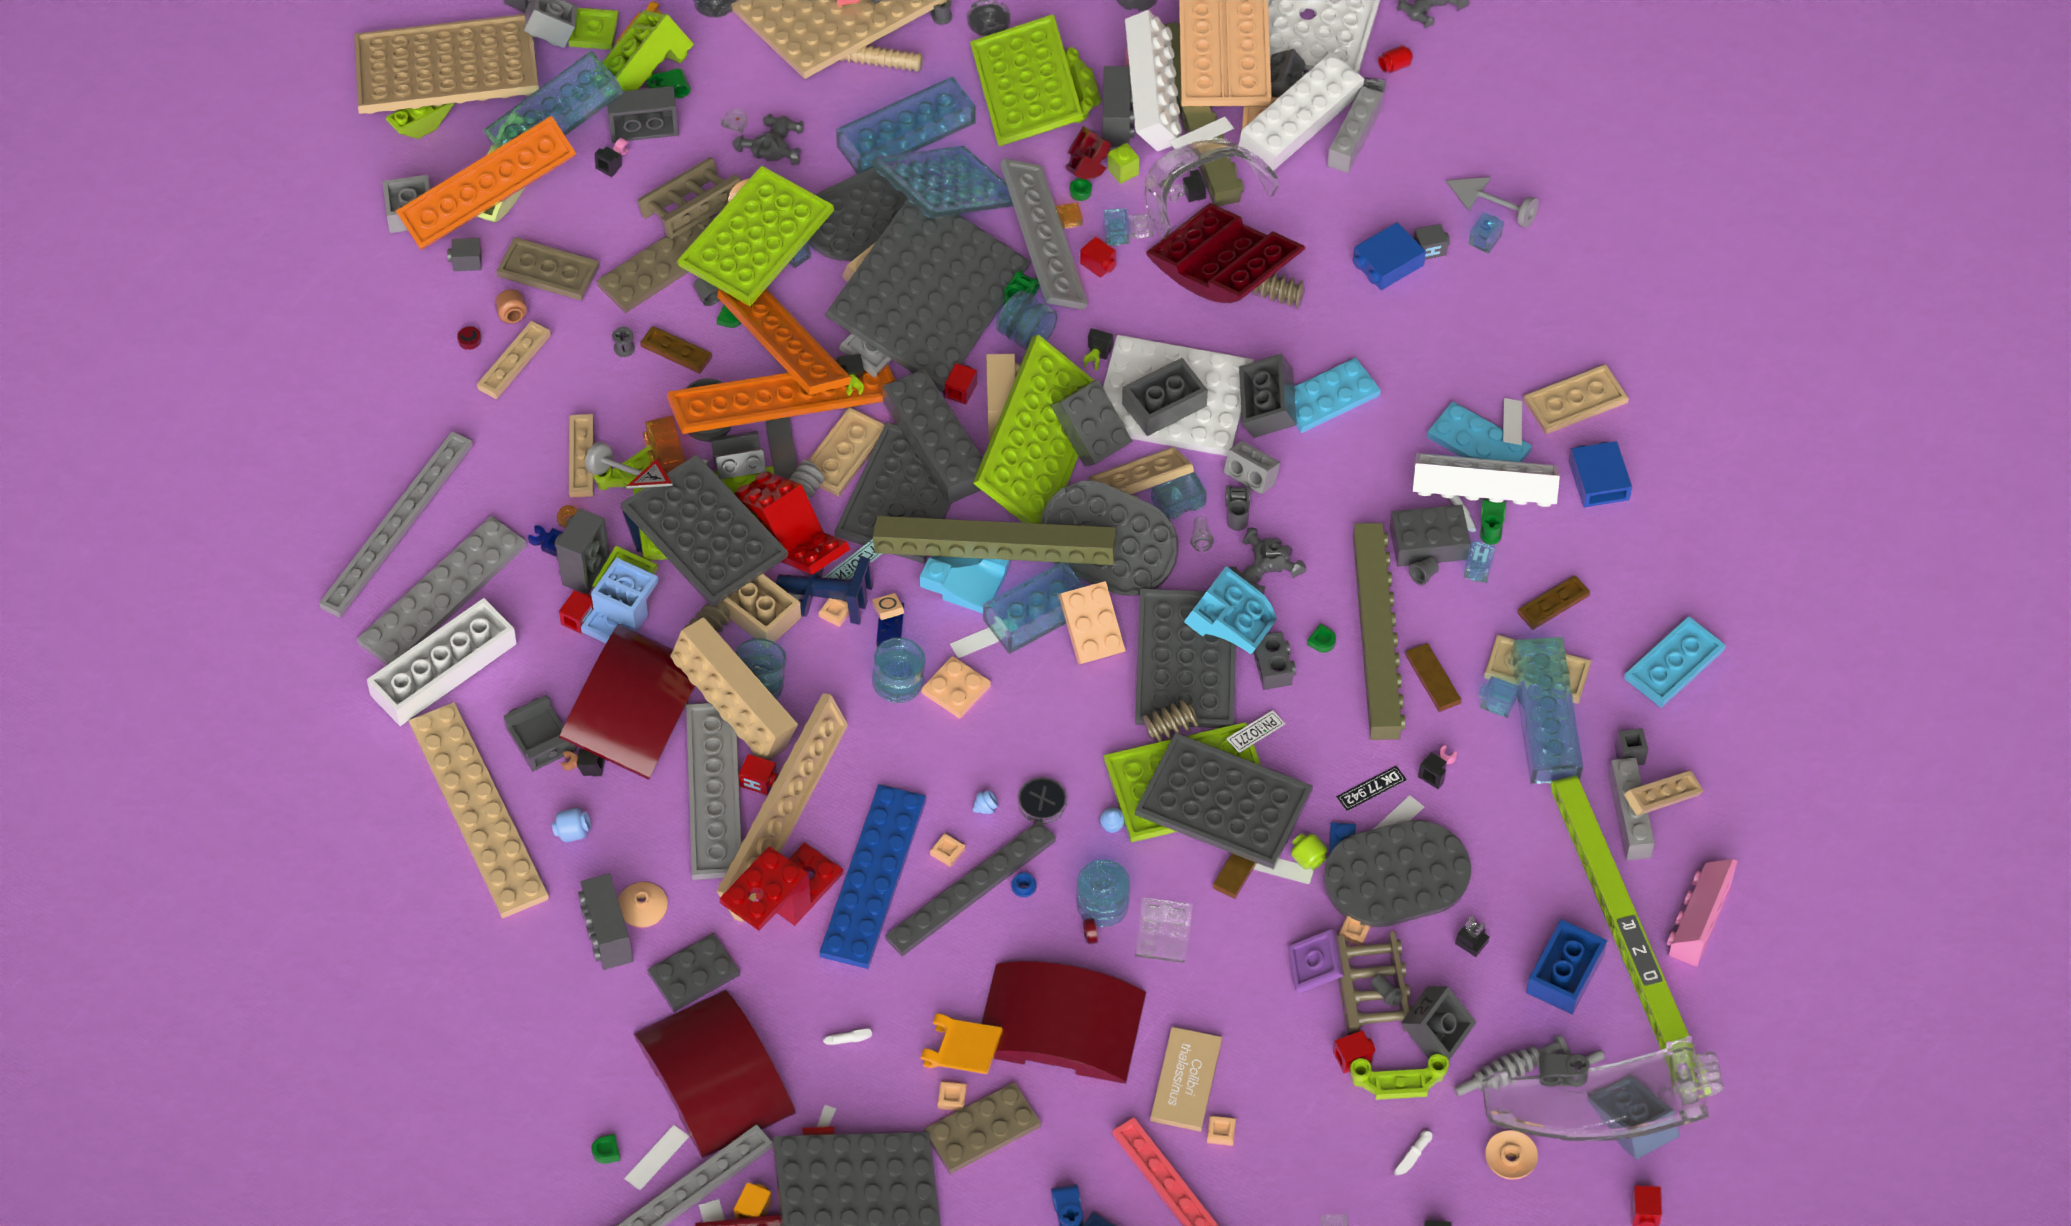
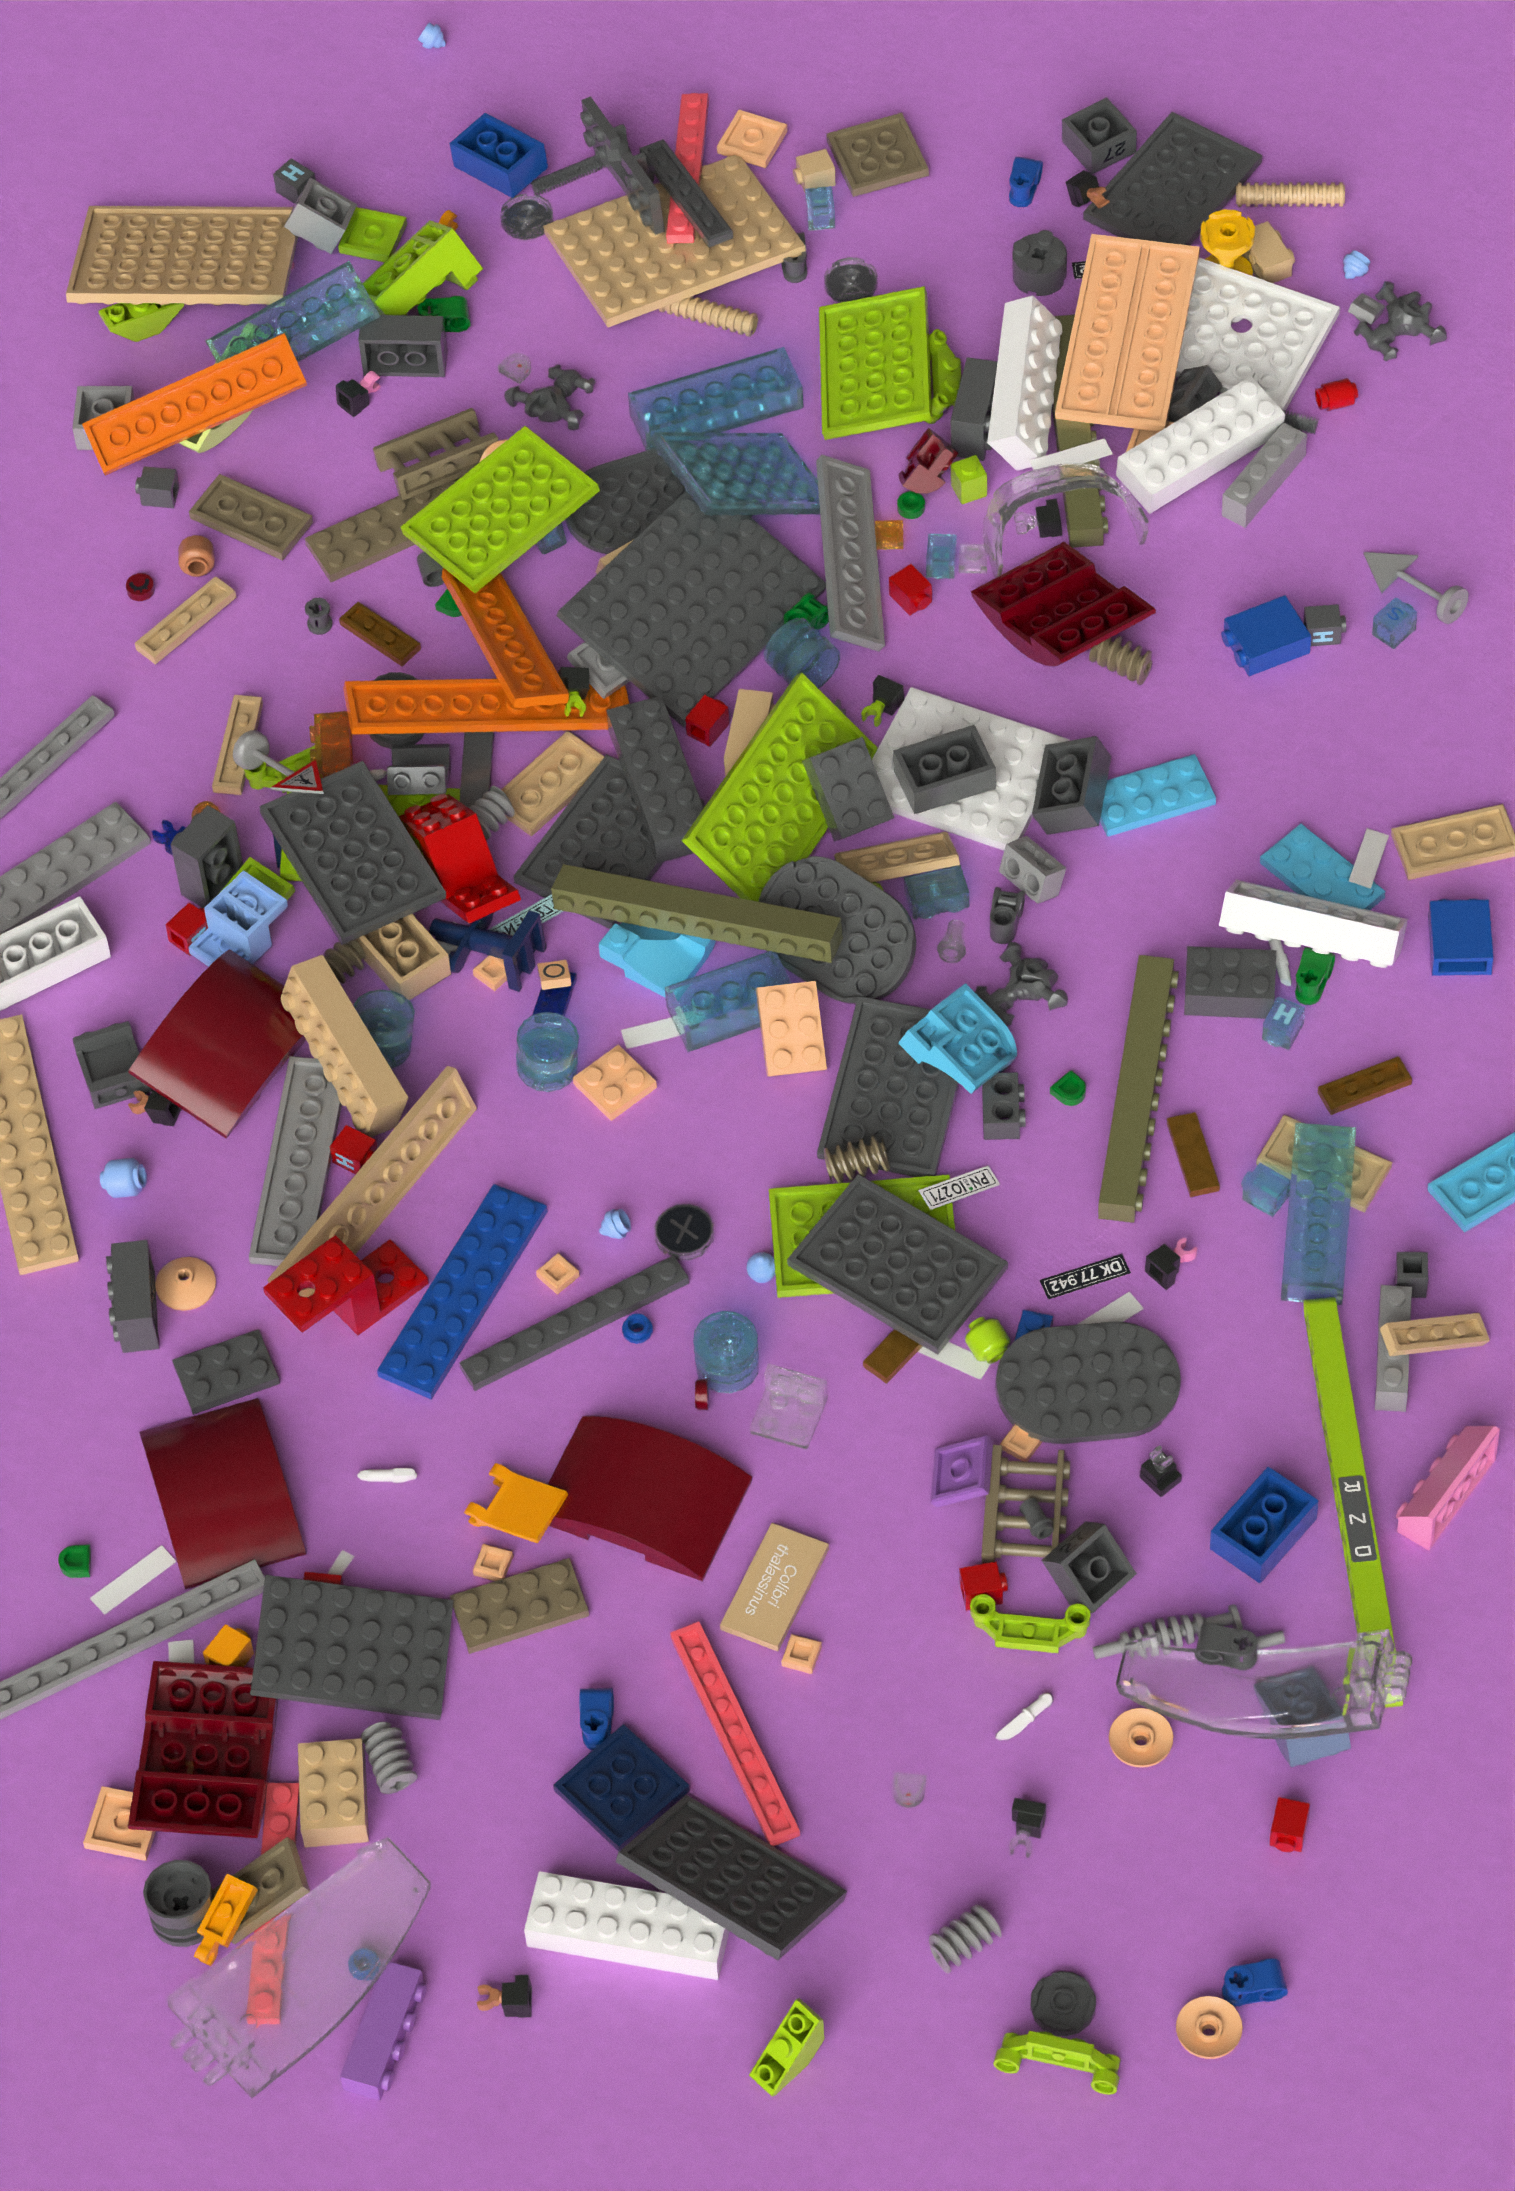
camera: 15 degrees right, 0 degrees up
(1423, 570) = (1212, 1023): dark grey piece -> none

